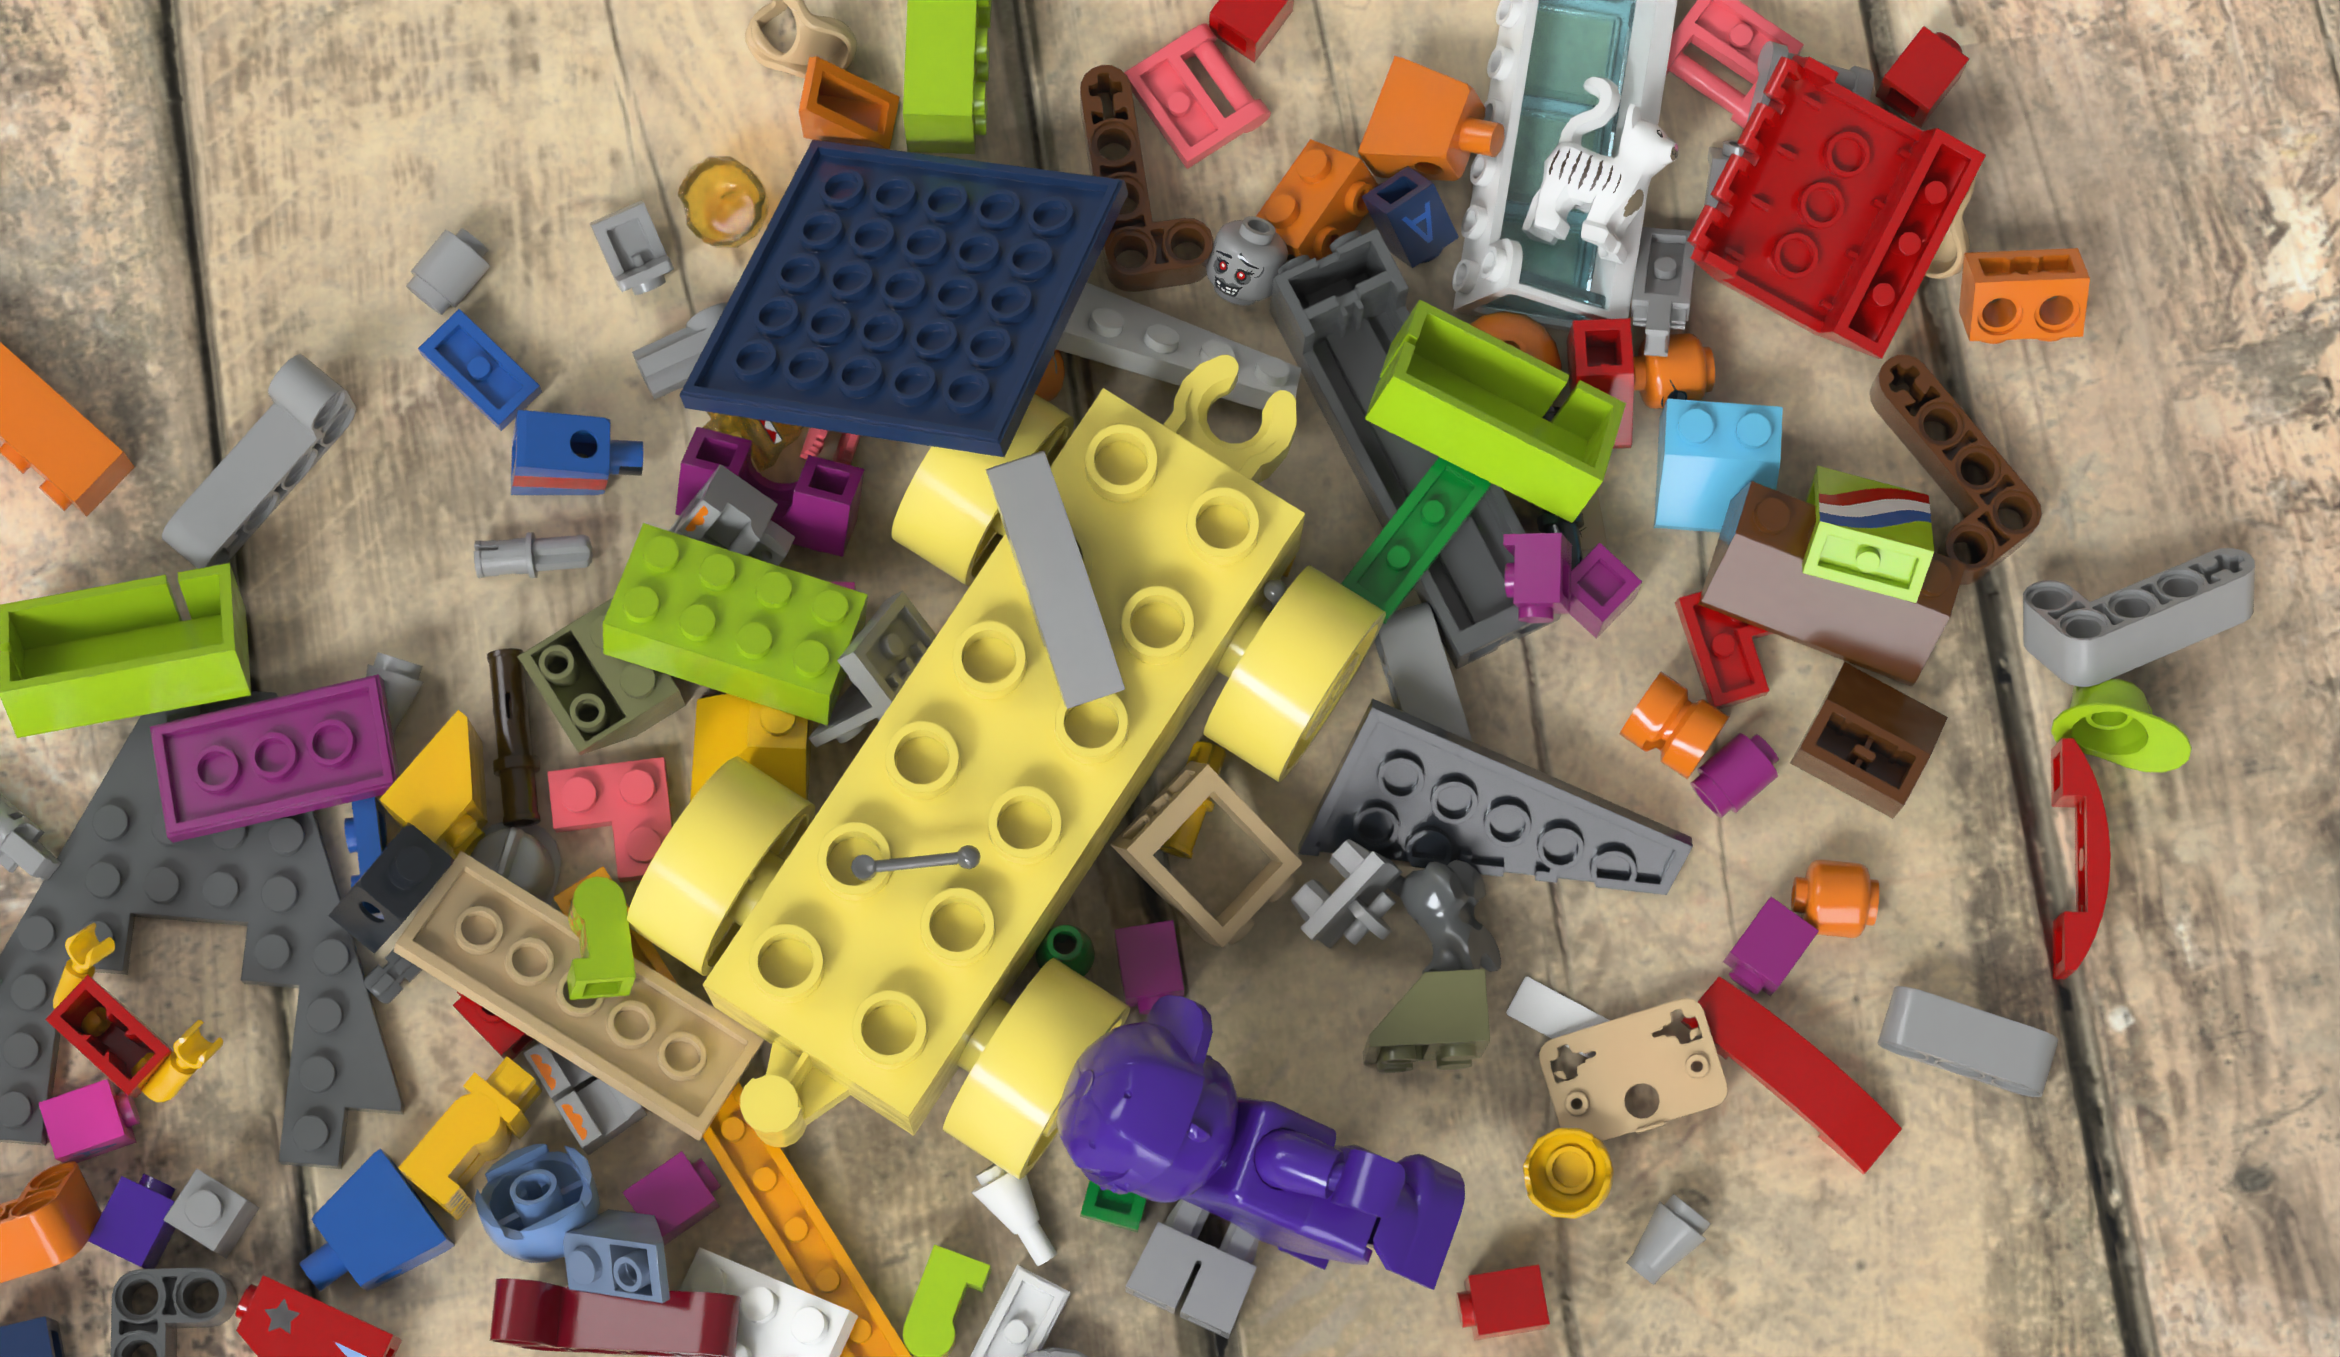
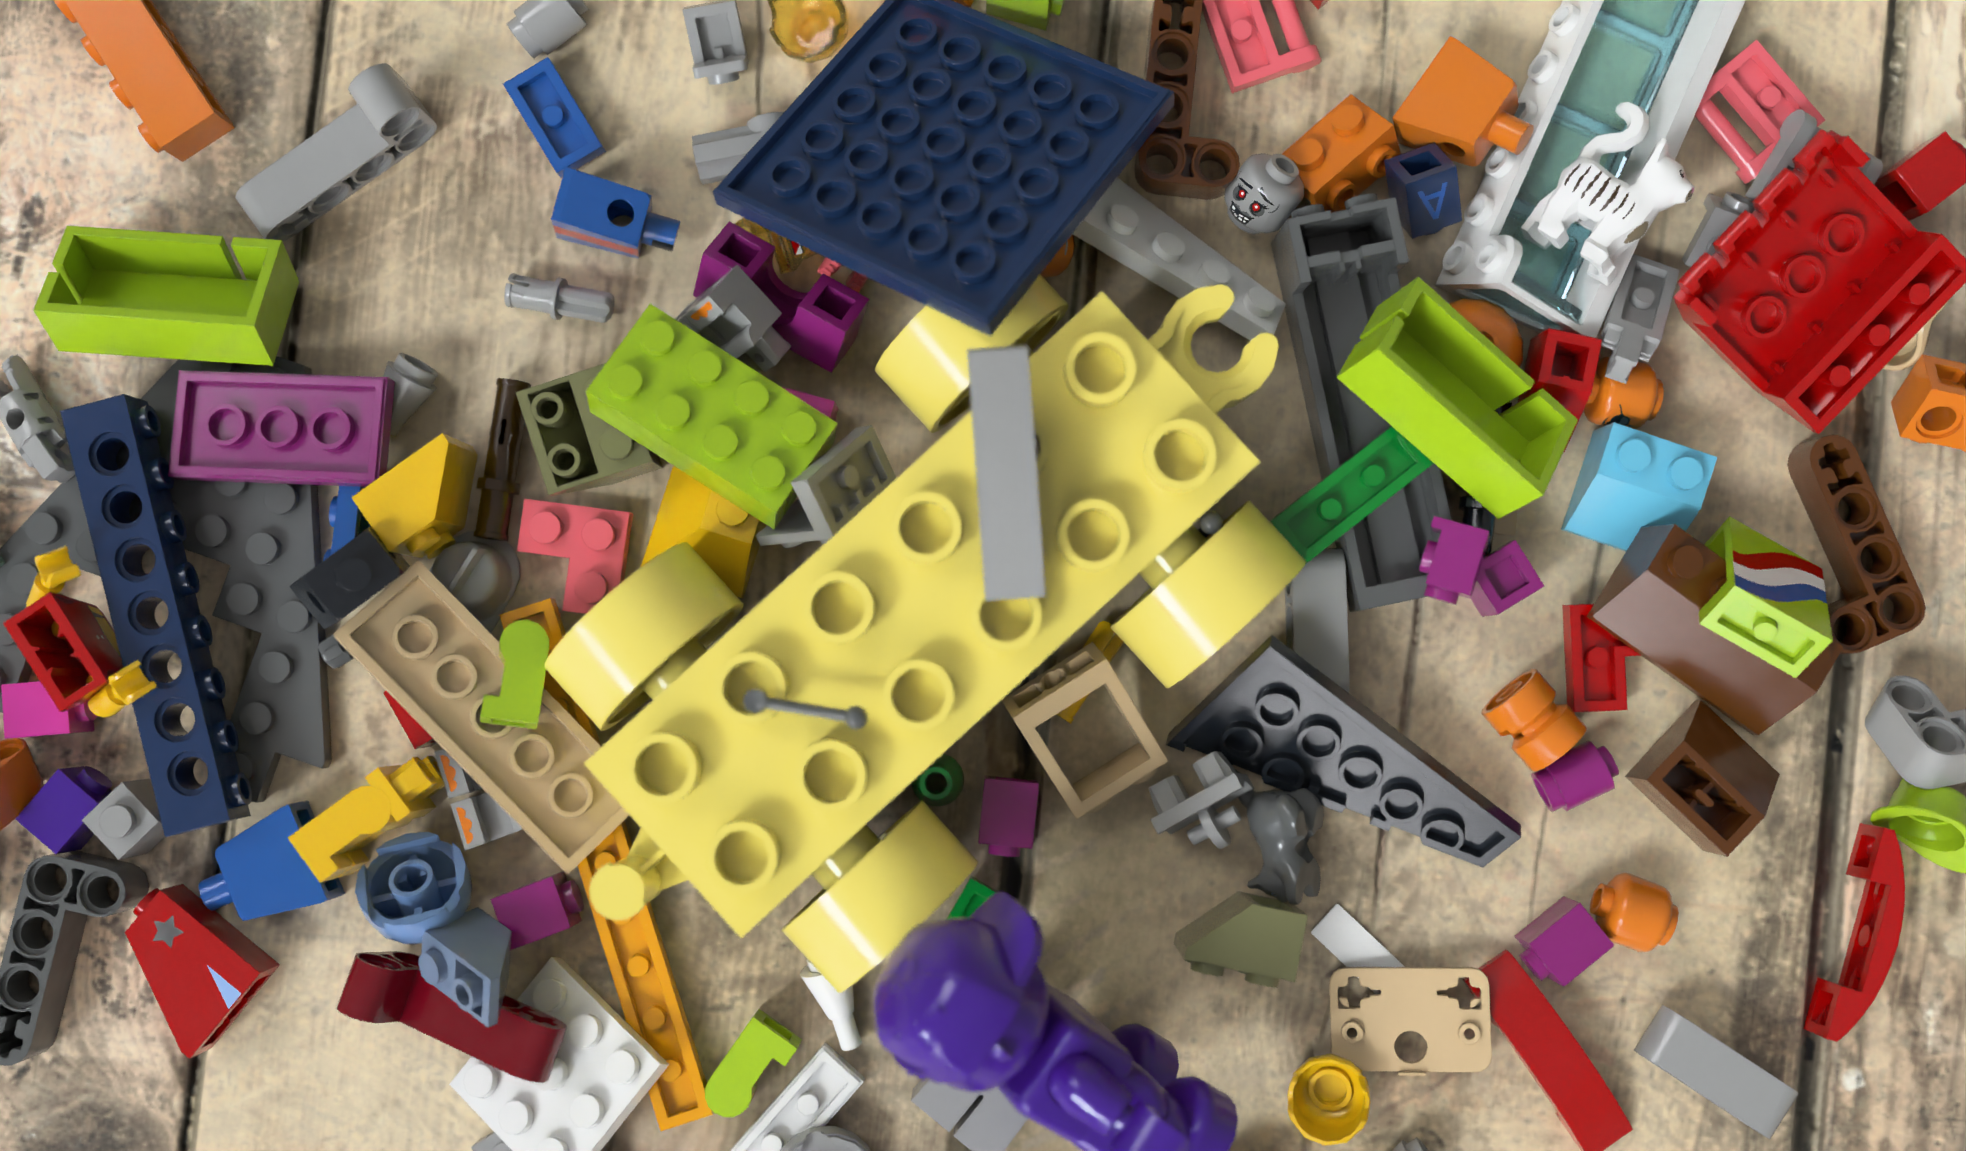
camera: 20 degrees right, 10 degrees up
(81, 810) = (94, 438): none -> dark blue brick

